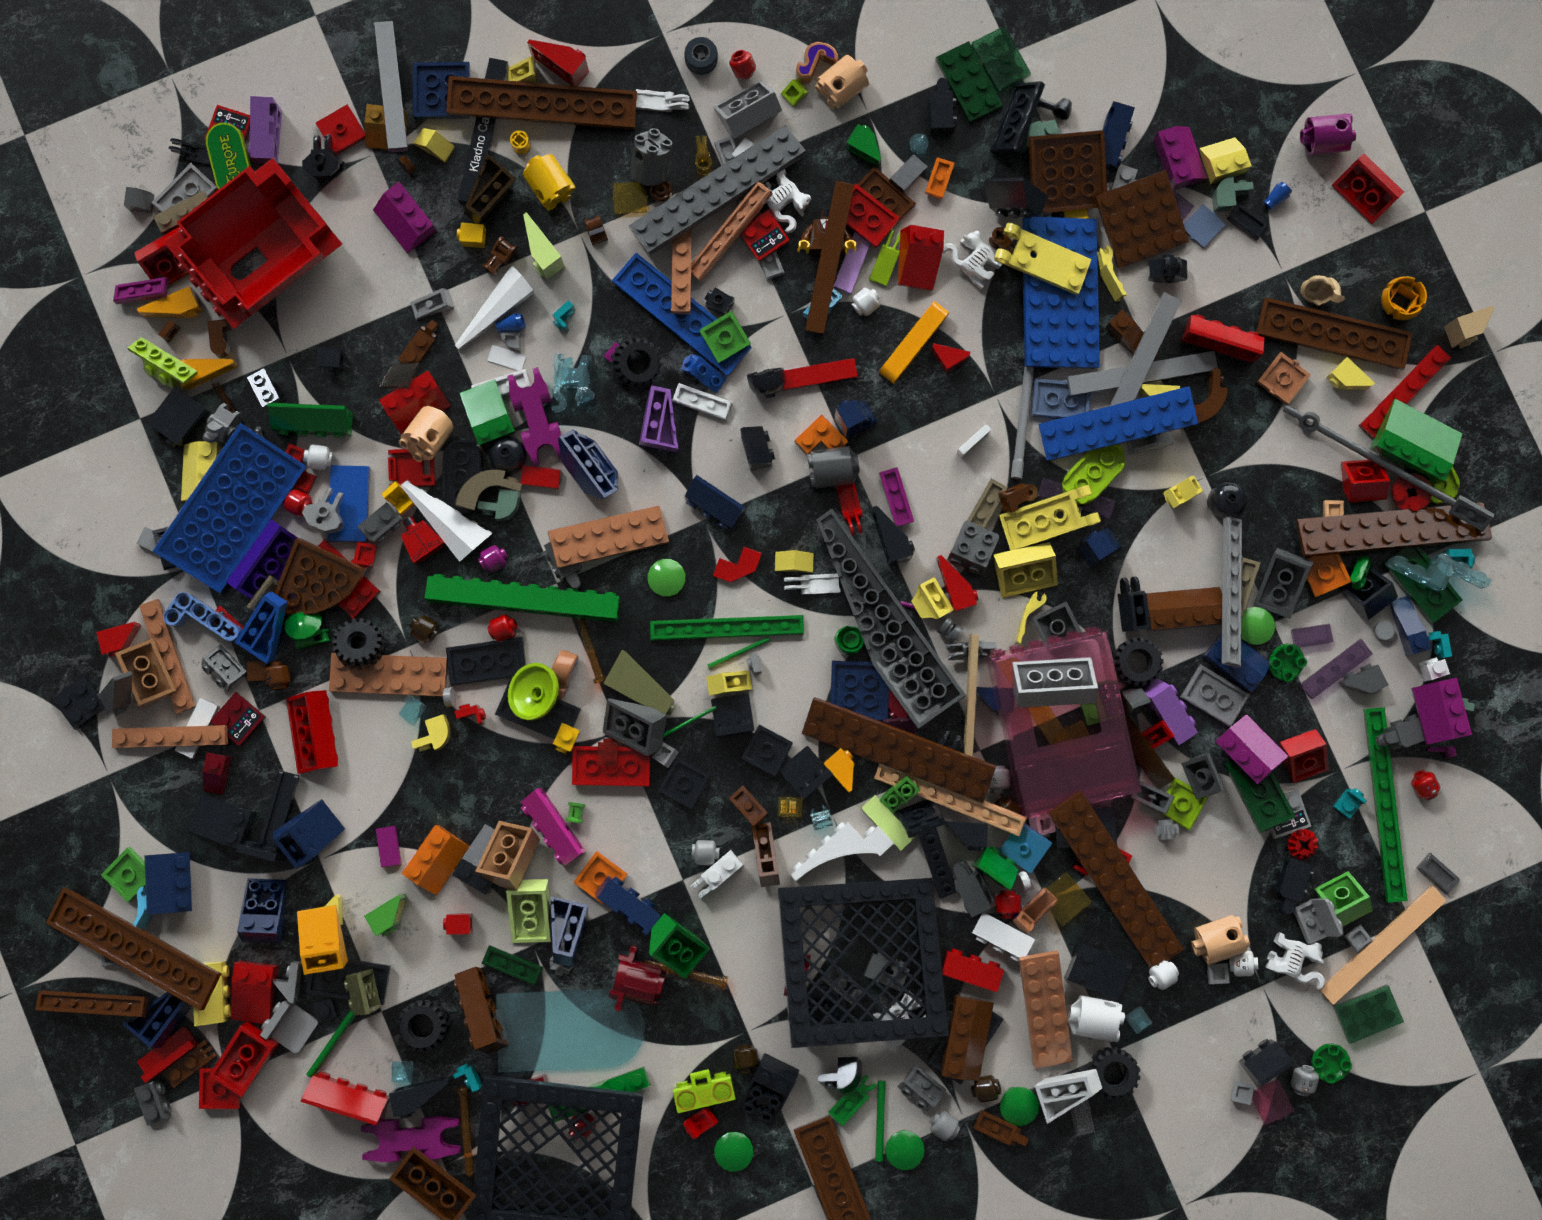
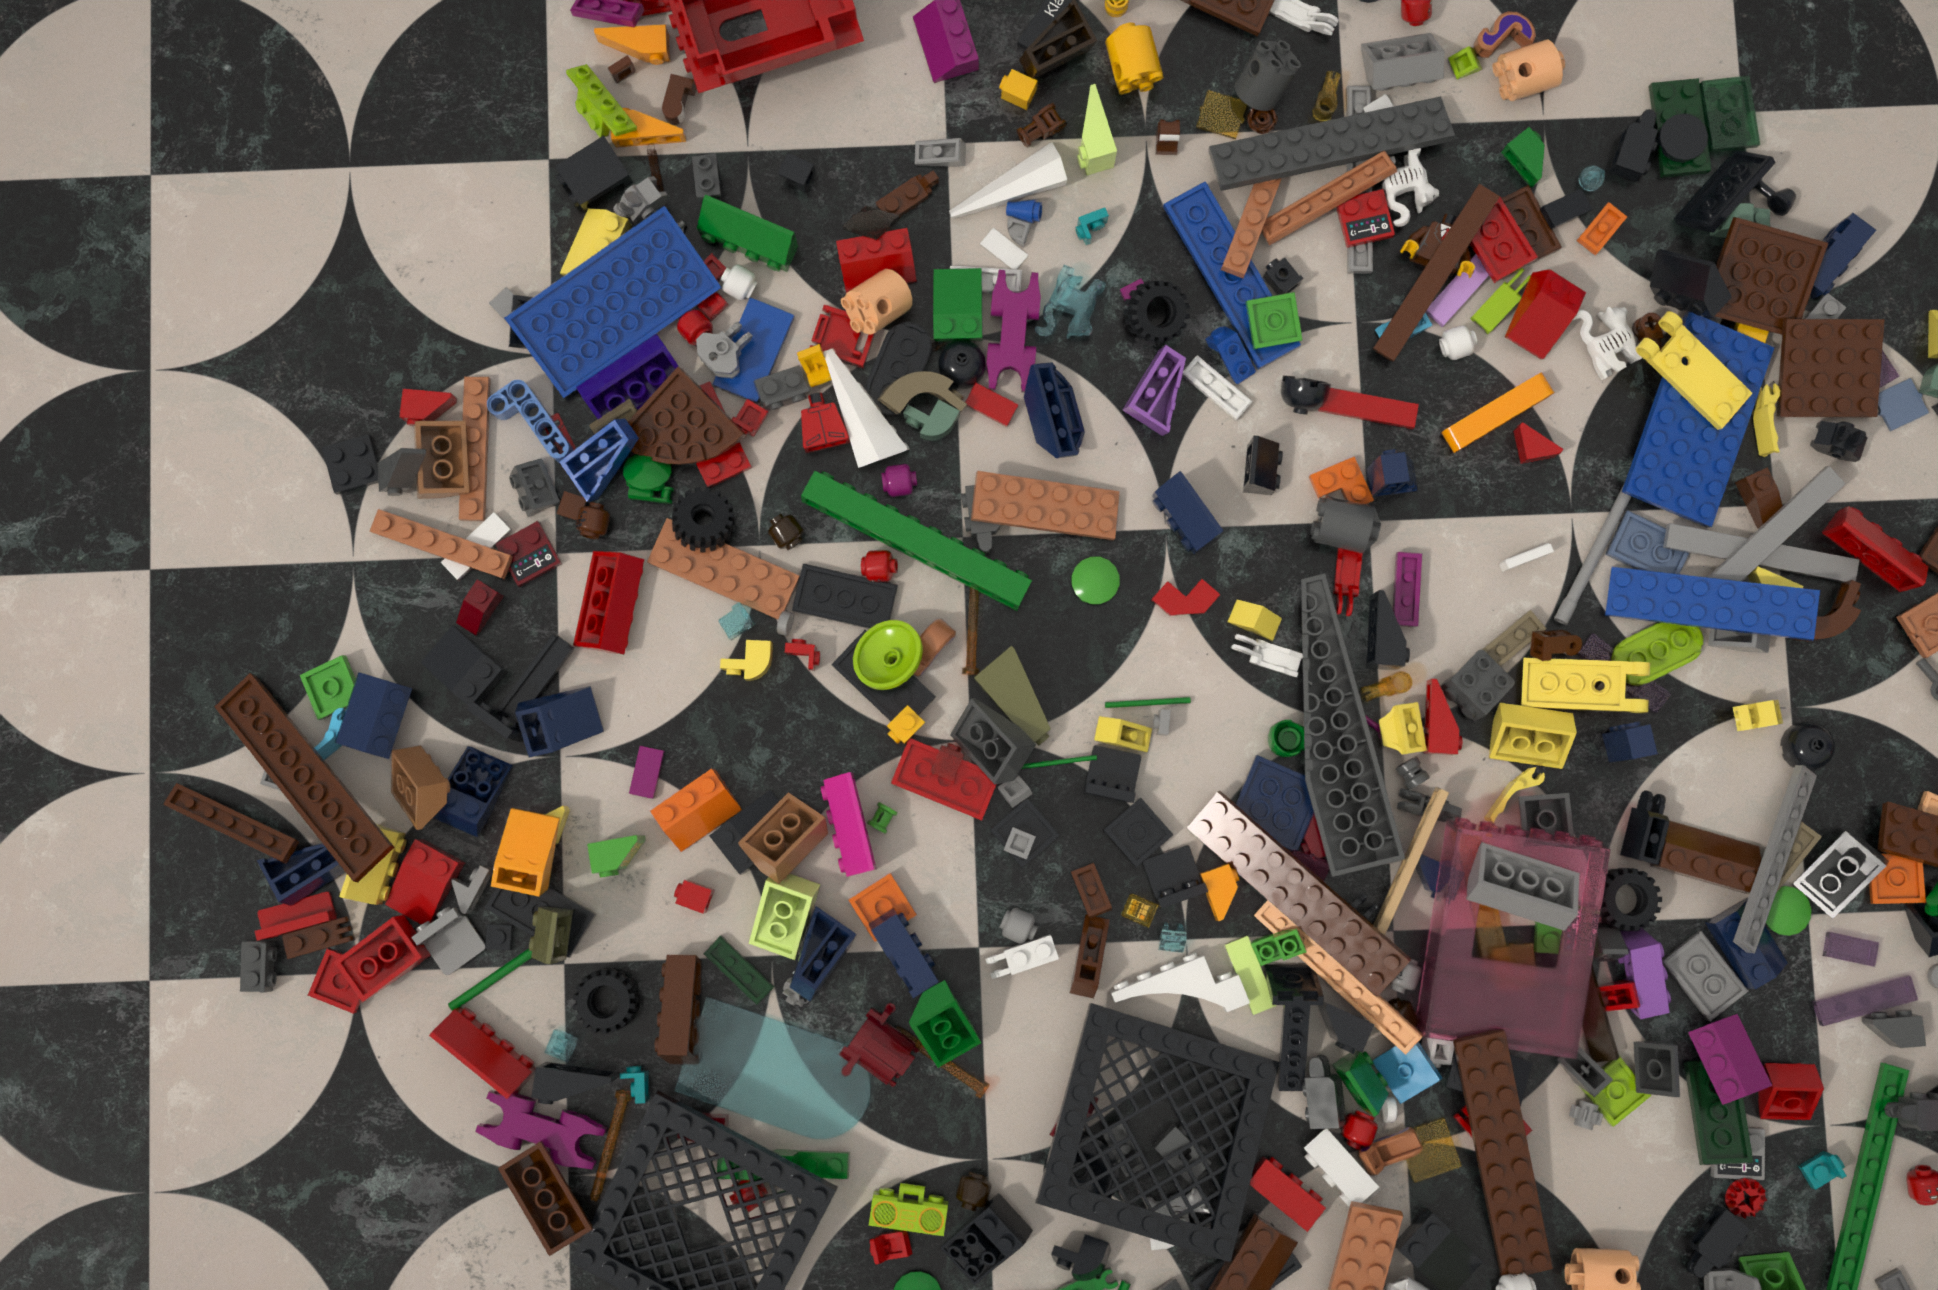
camera: 25 degrees right, 0 degrees up
(221, 921) = (418, 785): none -> medium nougat slope
(682, 791) = (1019, 843): none -> light grey plate
(727, 627) = (1145, 667): green tile -> none
(907, 574) = (1387, 687): none -> clear yellow pin
(972, 90) = (1682, 138): none -> black tile
(1180, 157) = (1905, 310): magenta slope -> none
(1287, 662) = (1808, 969): green dish -> none

